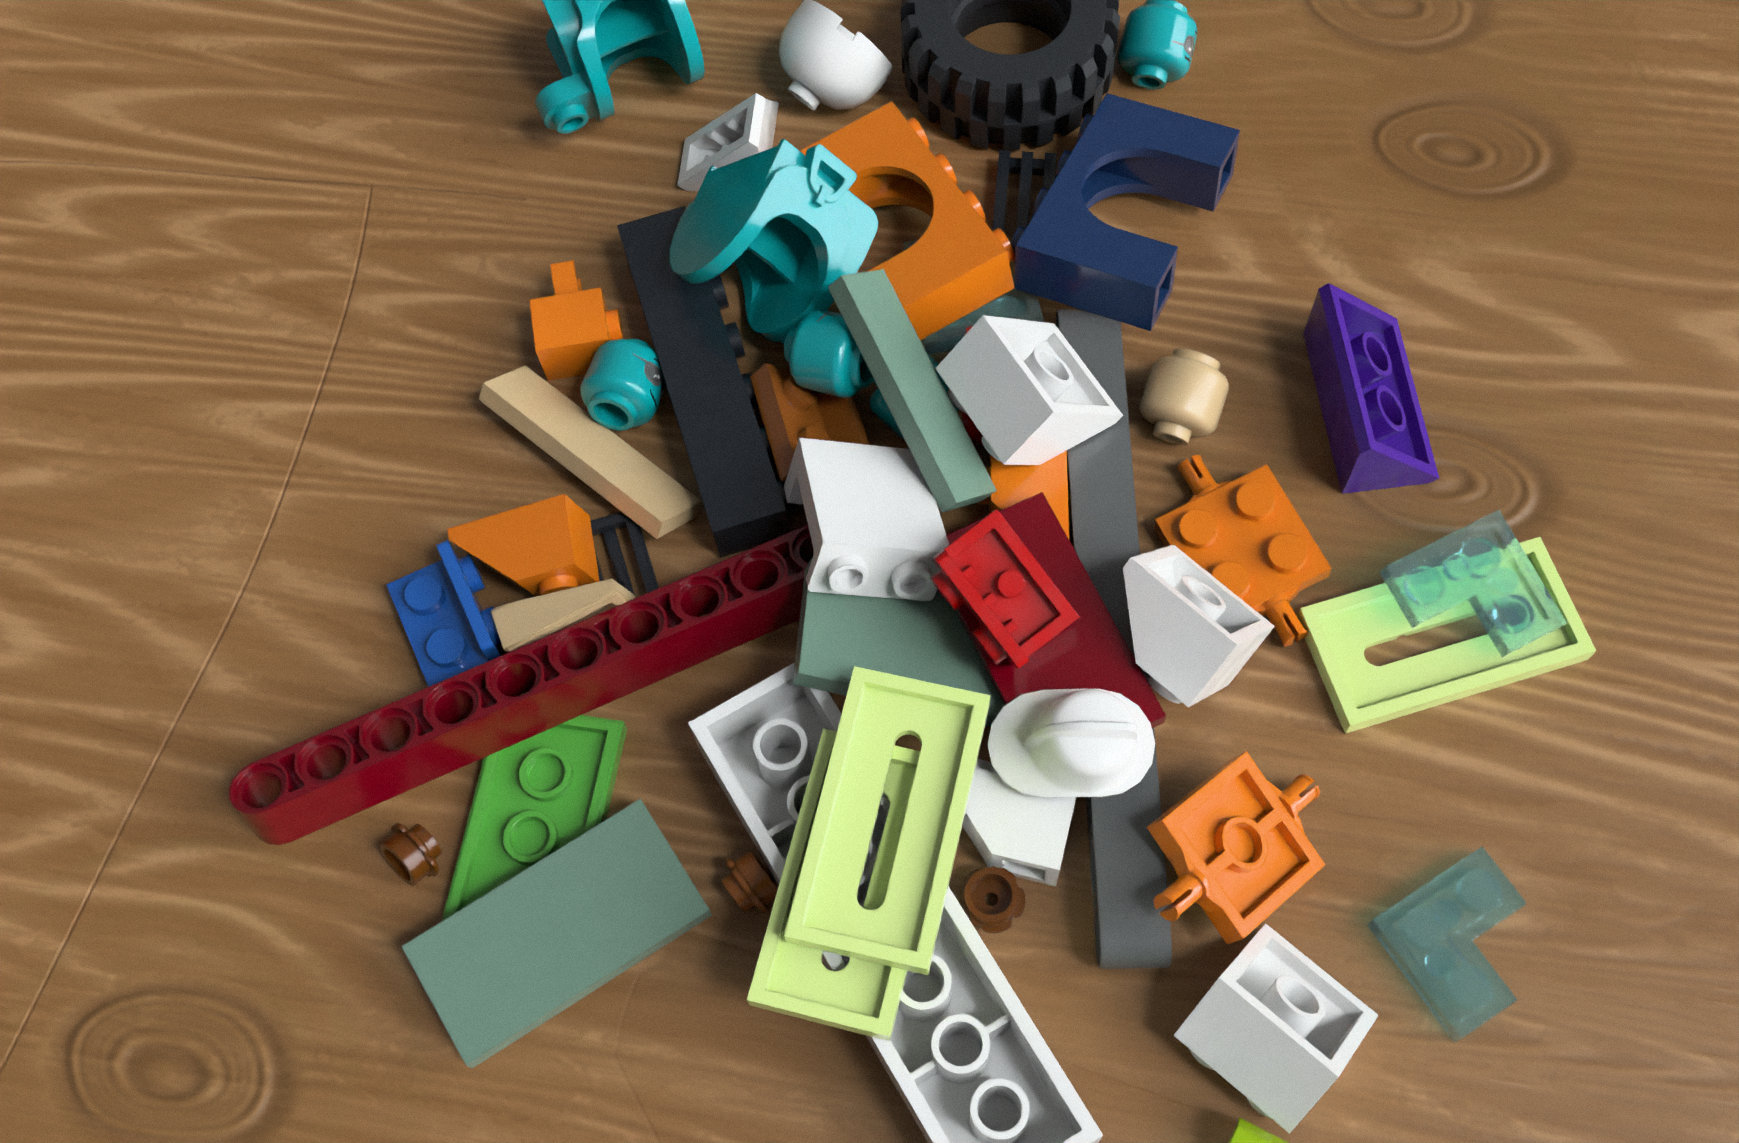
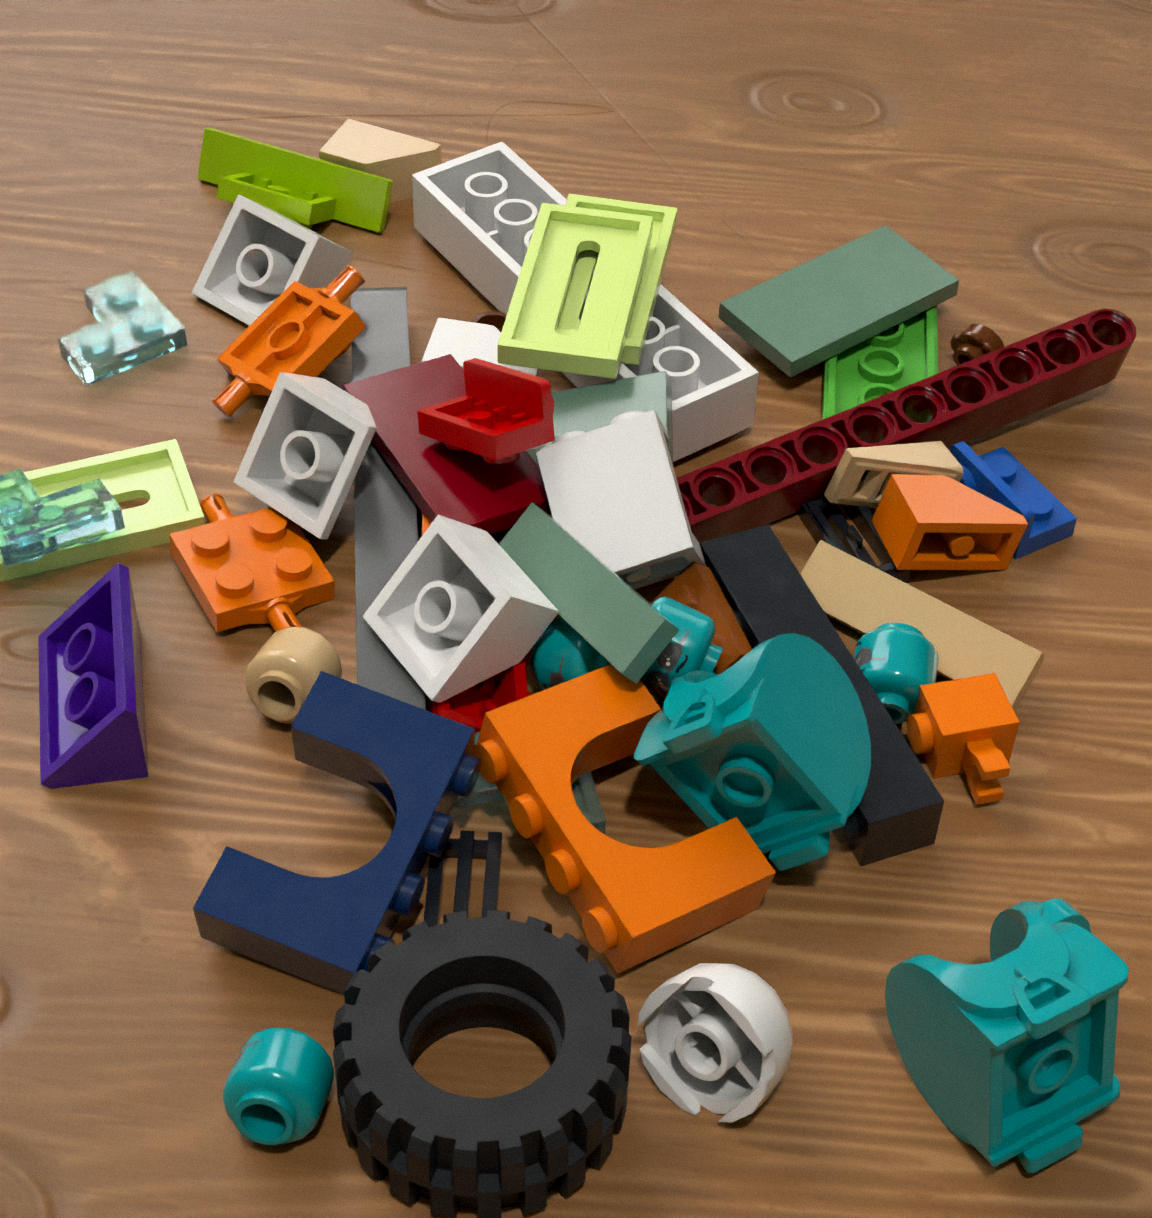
camera: 170 degrees right, 20 degrees down
(729, 138) = (832, 945): white slope -> none
(1071, 743) = (416, 356): white piece -> none

